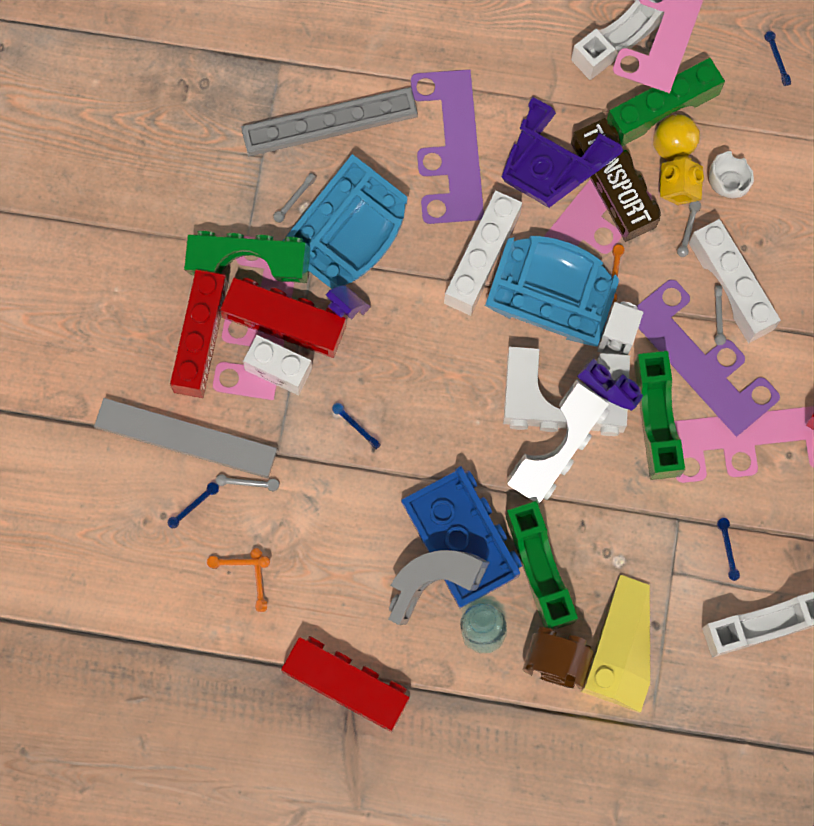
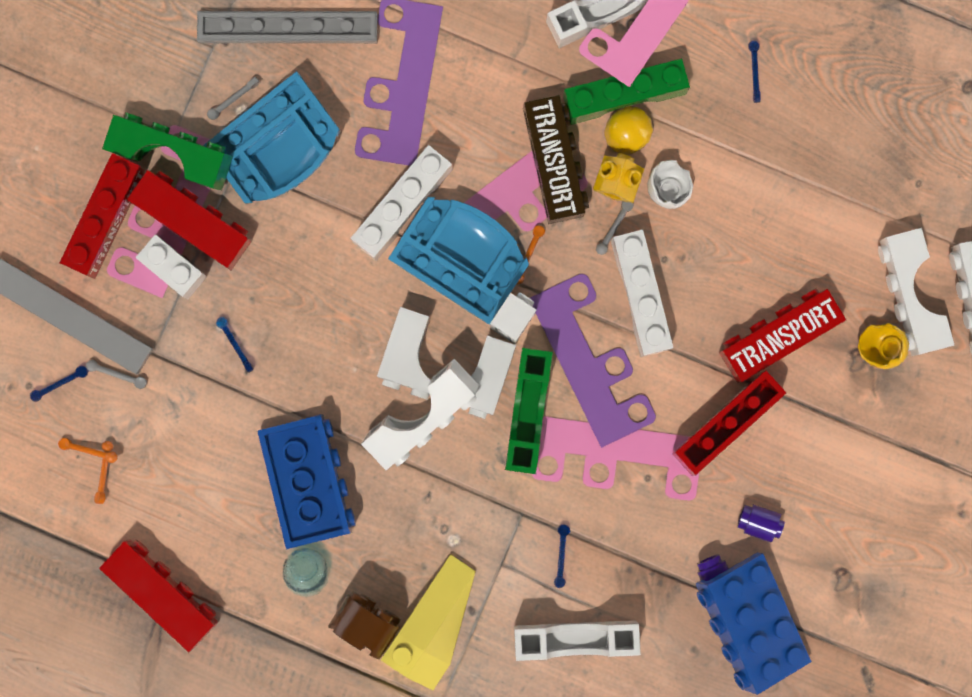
camera: 15 degrees right, 10 degrees up
(346, 302) = (253, 221): dark purple slope -> none
(418, 574) = (284, 510): light grey arch -> none
(539, 566) = (373, 531): green arch -> none
(546, 169) = (486, 132): dark purple wing -> none
(620, 392) = (489, 380): dark purple slope -> none
(720, 339) = (613, 347): light grey hinge -> none

